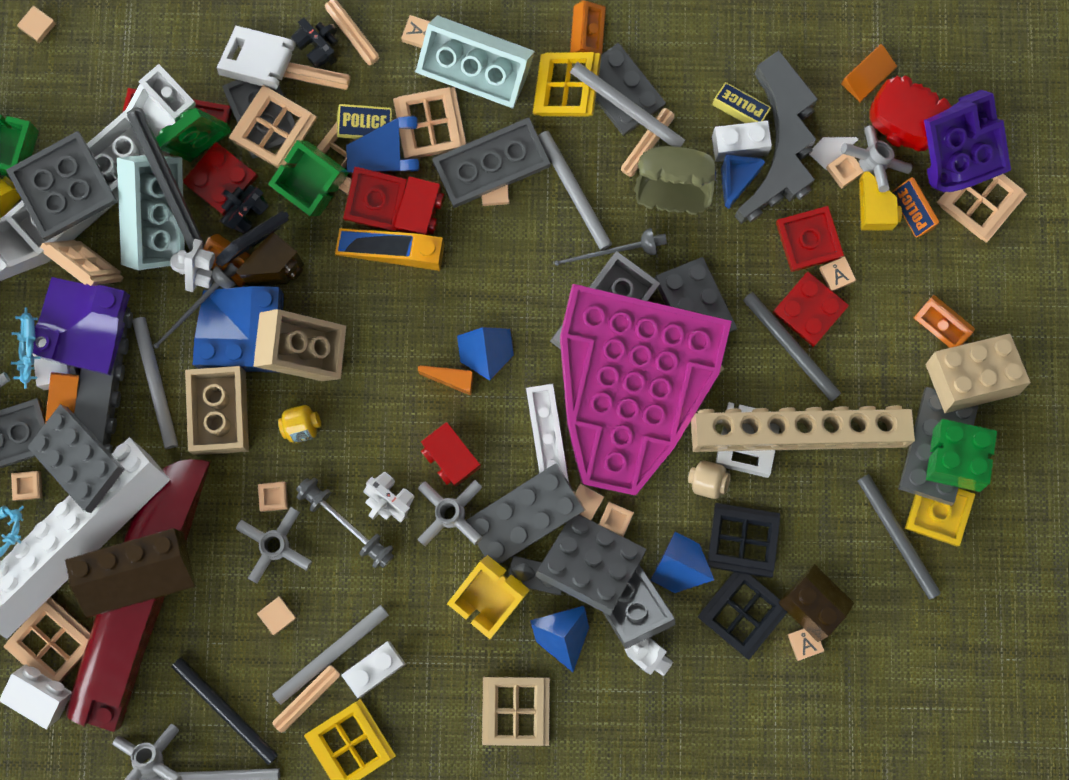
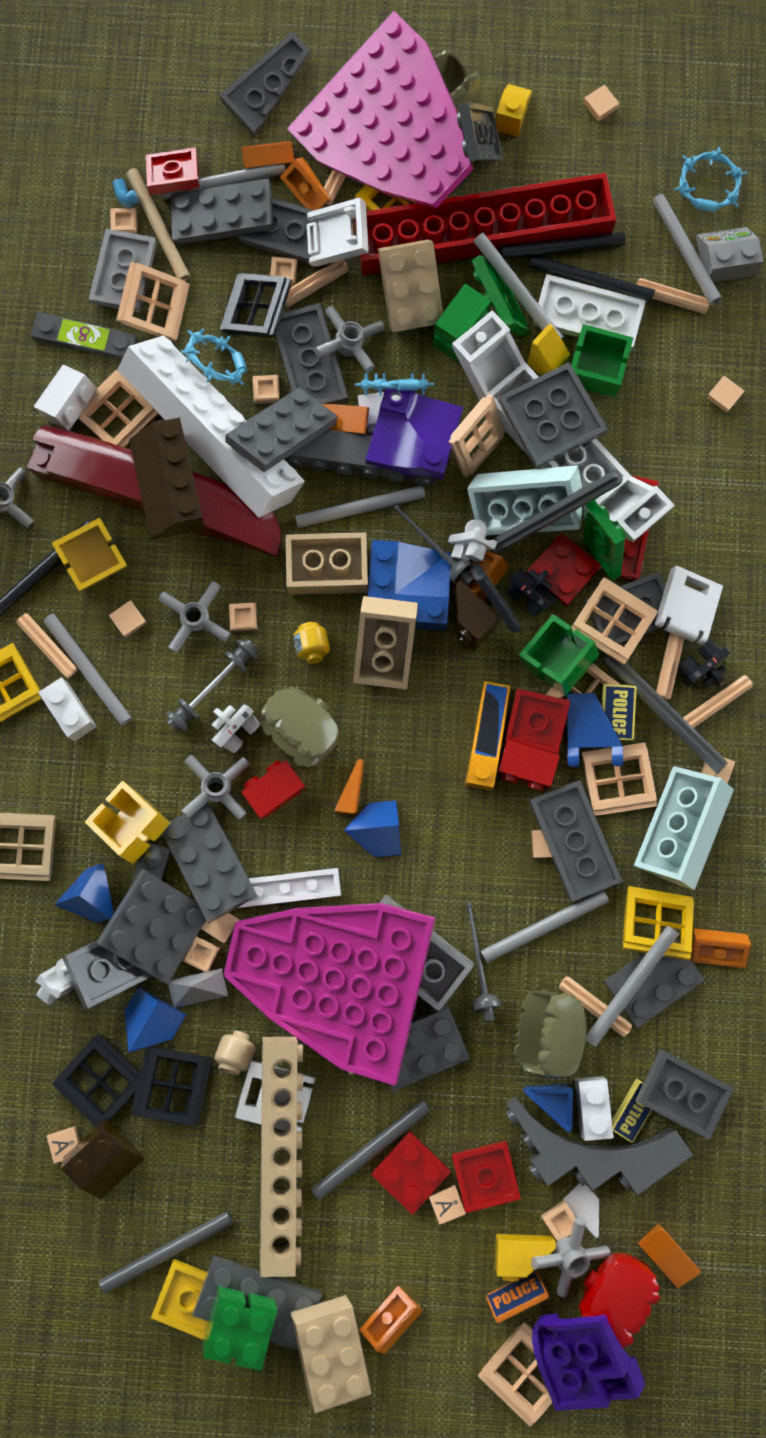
camera: 90 degrees right, 0 degrees up
(210, 657) = (89, 554): none -> yellow piece
(364, 78) = (667, 714): none -> dark grey axle
(386, 429) = (300, 726): none -> olive animal
(649, 520) = (198, 988): none -> light grey slope
(724, 59) = (684, 1094): none -> dark grey plate

